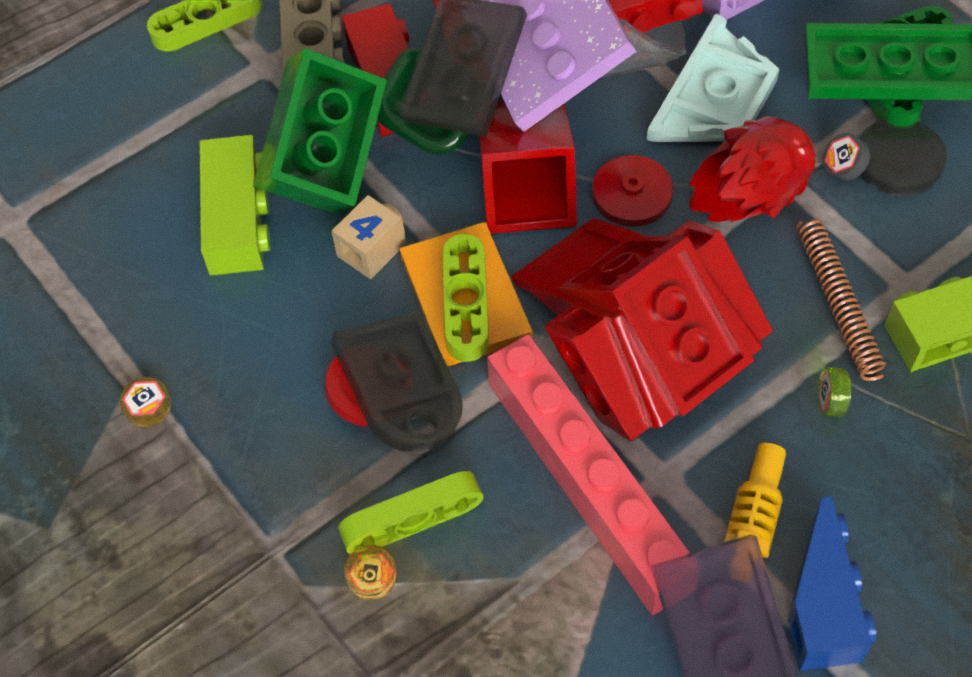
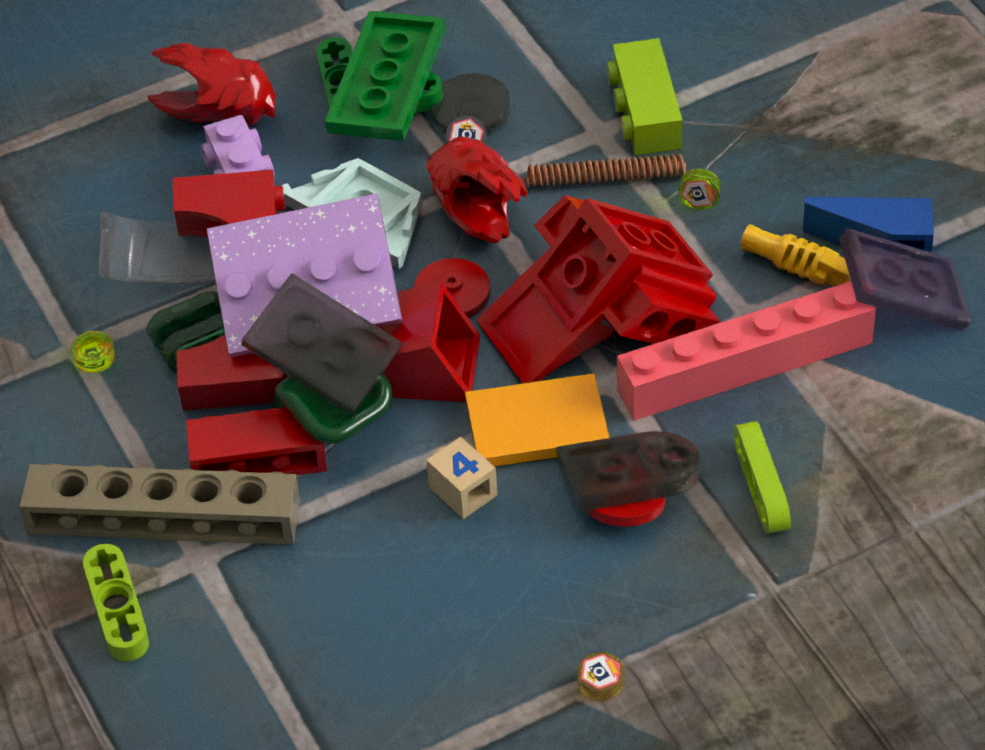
camera: 80 degrees left, 10 degrees down
(231, 206) = (390, 584): lime brick -> none
(320, 132) = (352, 477): green brick -> none
(370, 572) = (809, 518): clear yellow tile -> none
(456, 313) = (564, 422): lime beam -> none

